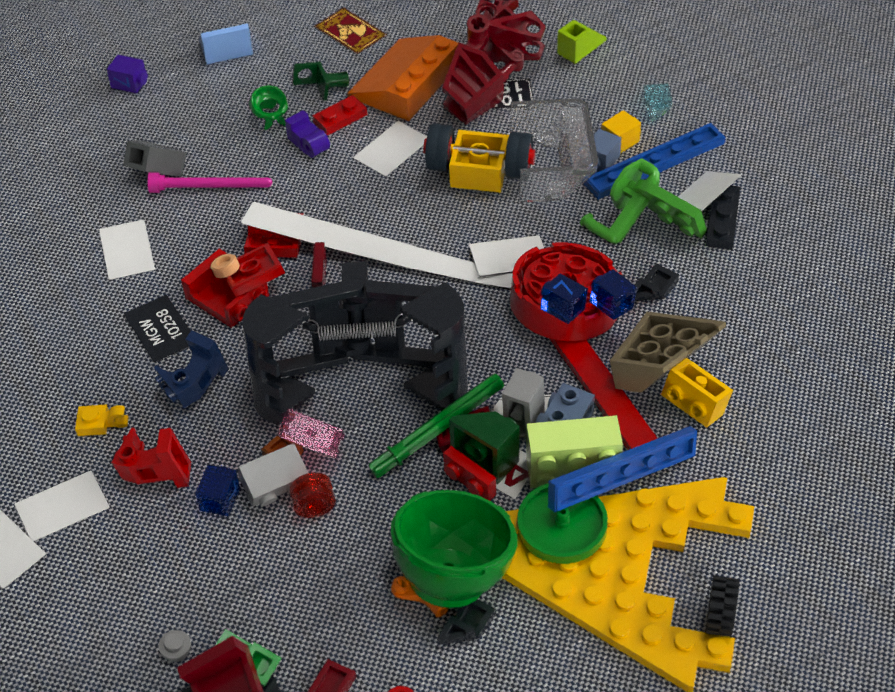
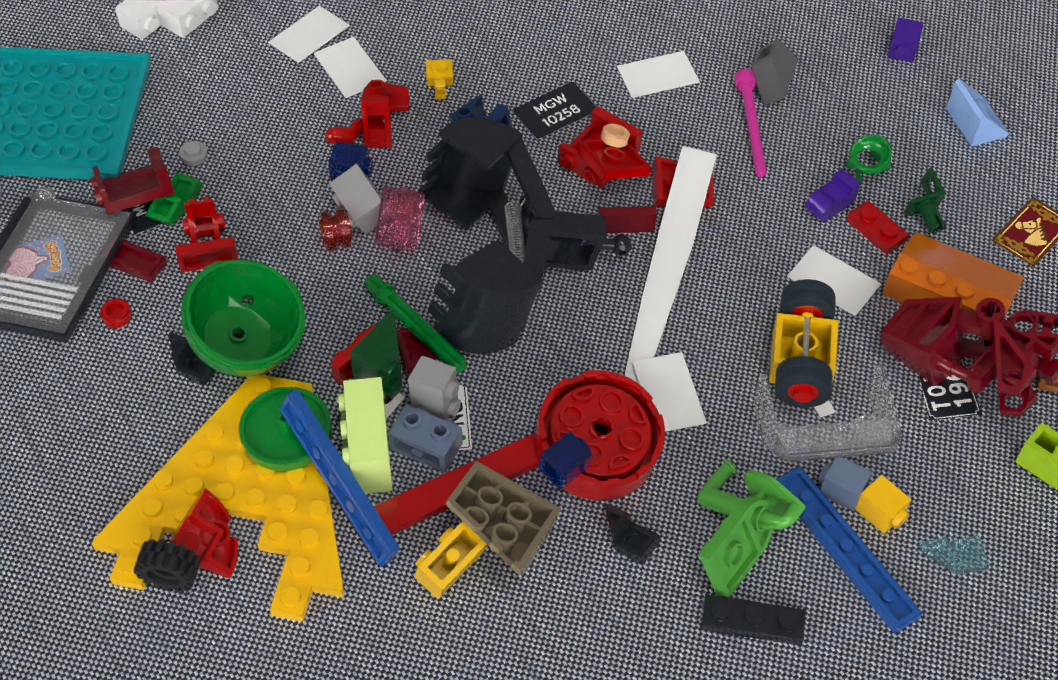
camera: 85 degrees right, 5 degrees up
(170, 498) = (344, 134): none -> red arm
(324, 610) = (203, 222): none -> red tile
(563, 298) = (551, 408): clear blue brick -> none
(680, 585) = (207, 533): none -> red brick
(708, 188) = (787, 594): white sticker -> none

